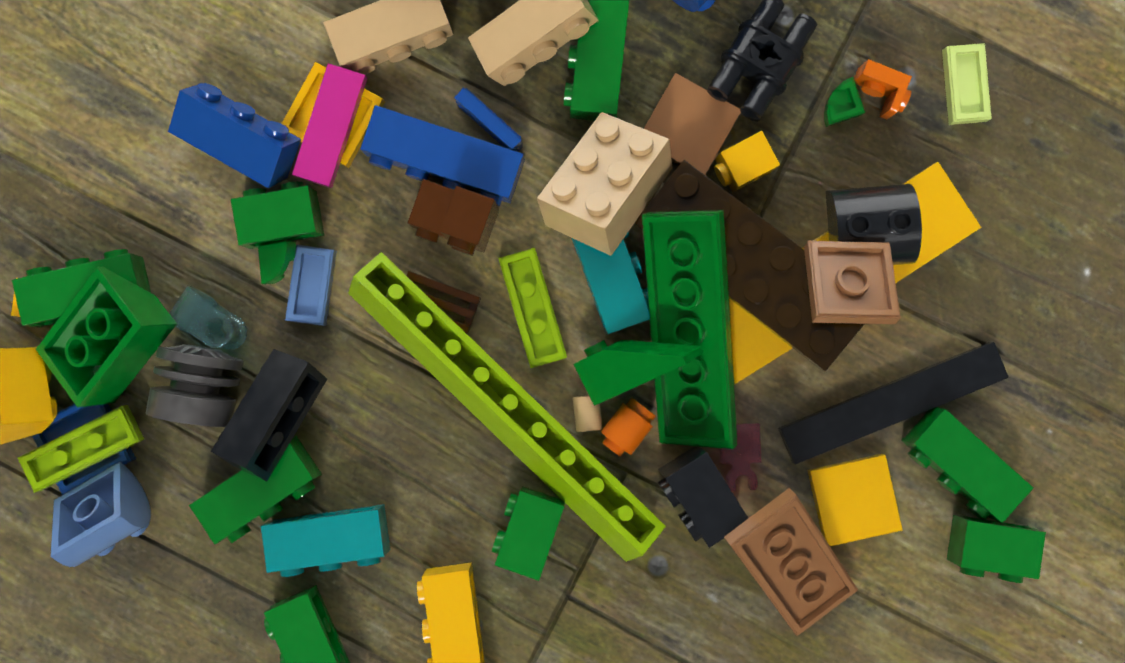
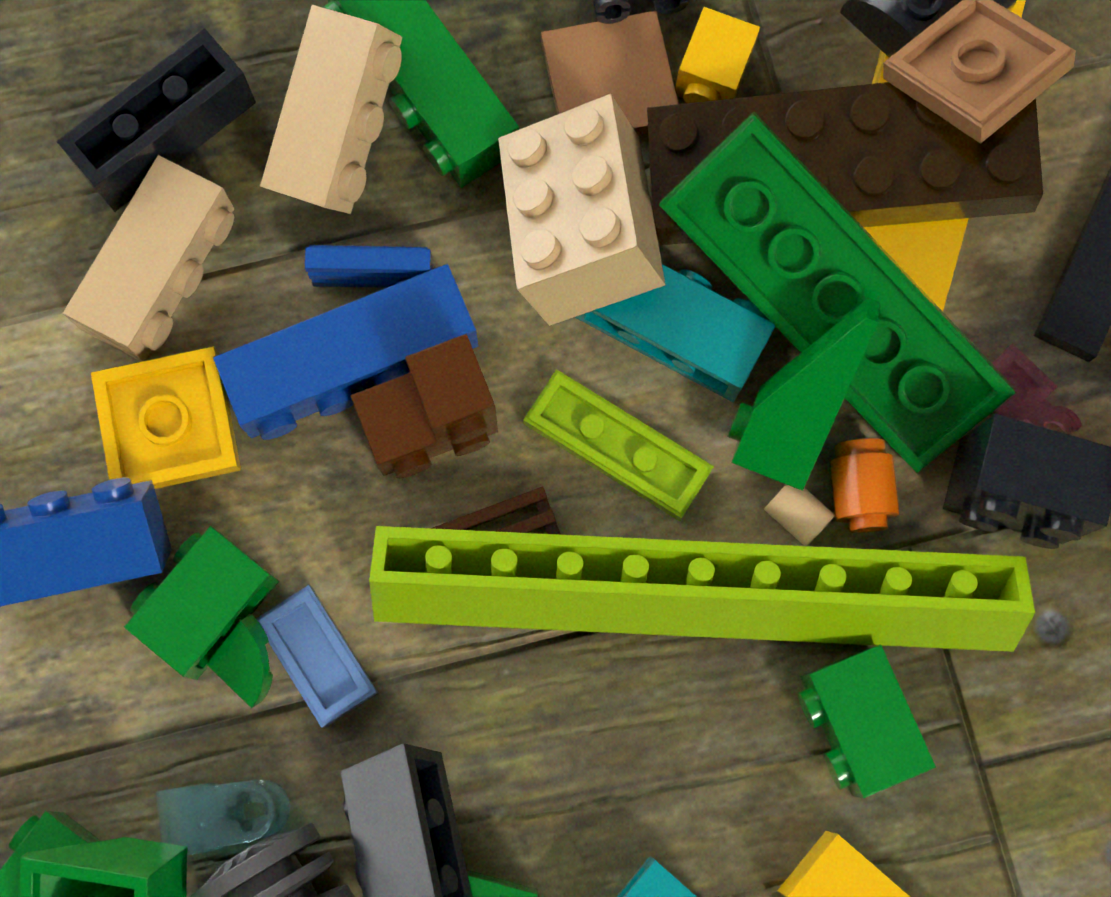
camera: 50 degrees left, 10 degrees down
(329, 125) = (176, 432): dark pink tile -> none

